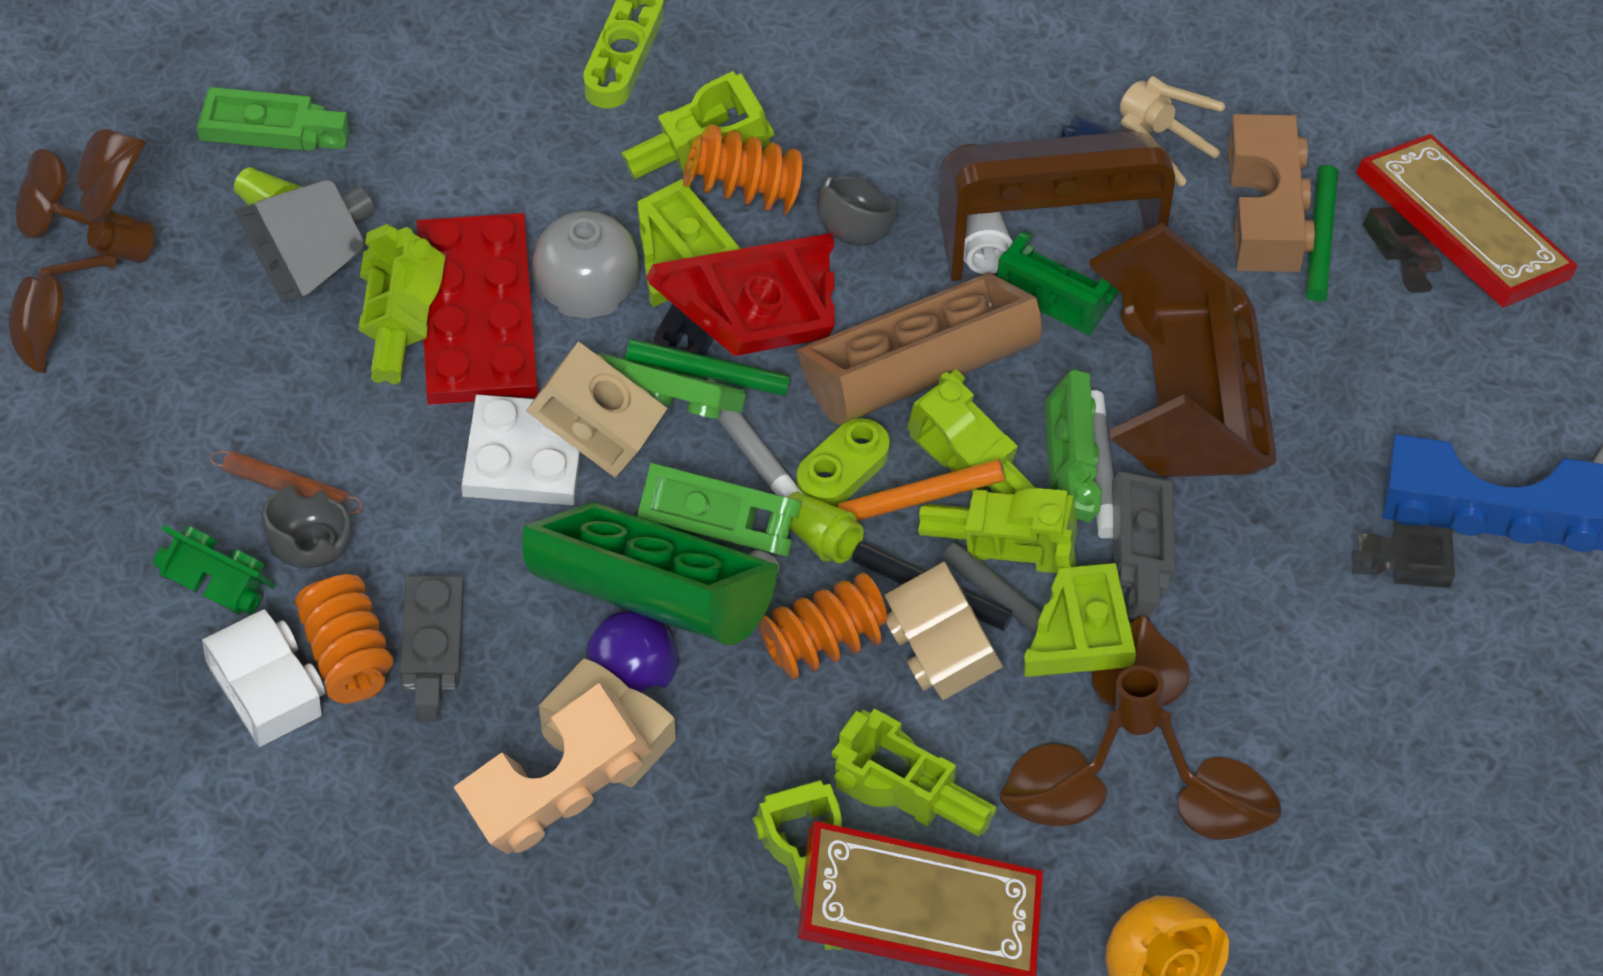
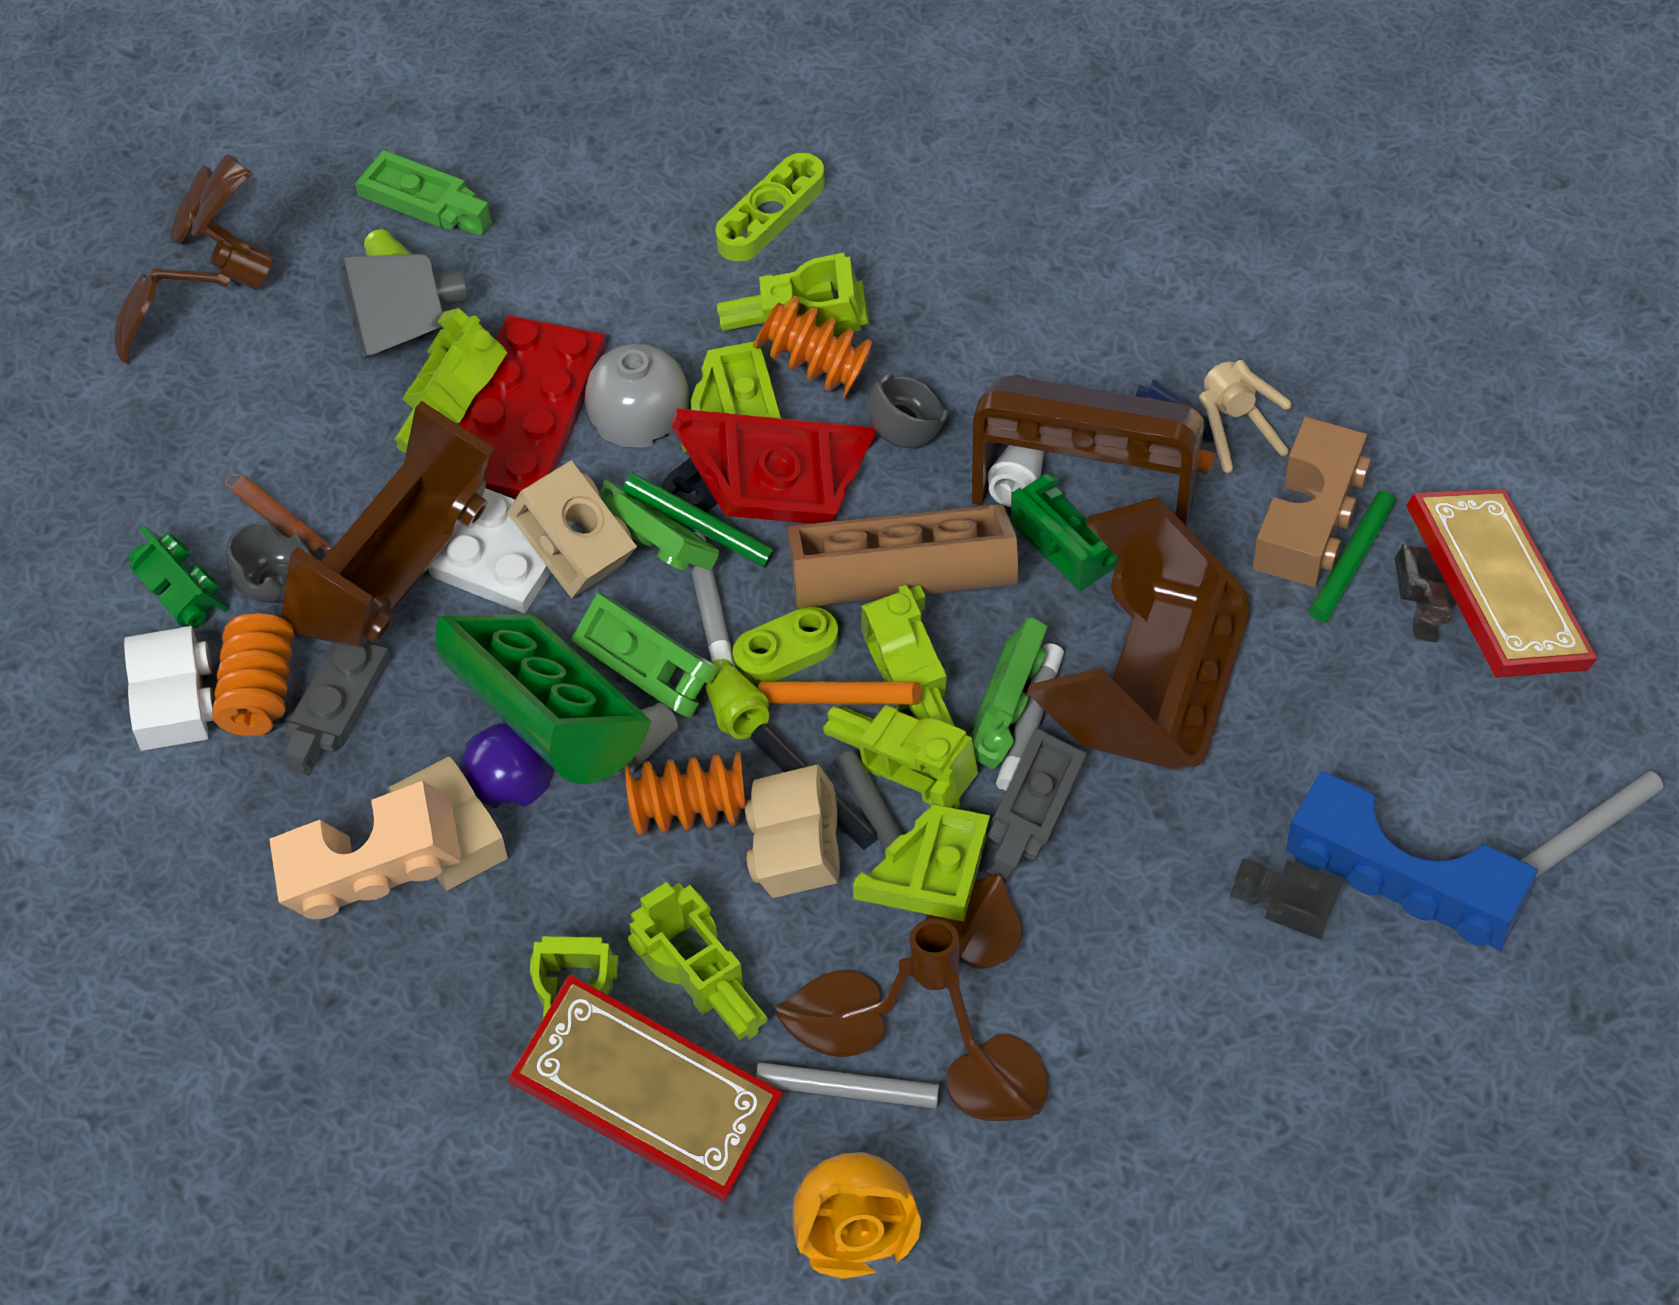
camera: 25 degrees right, 0 degrees up
(428, 460) = (395, 537): none -> reddish brown windscreen
(1097, 846) = (849, 1085): none -> light grey bar

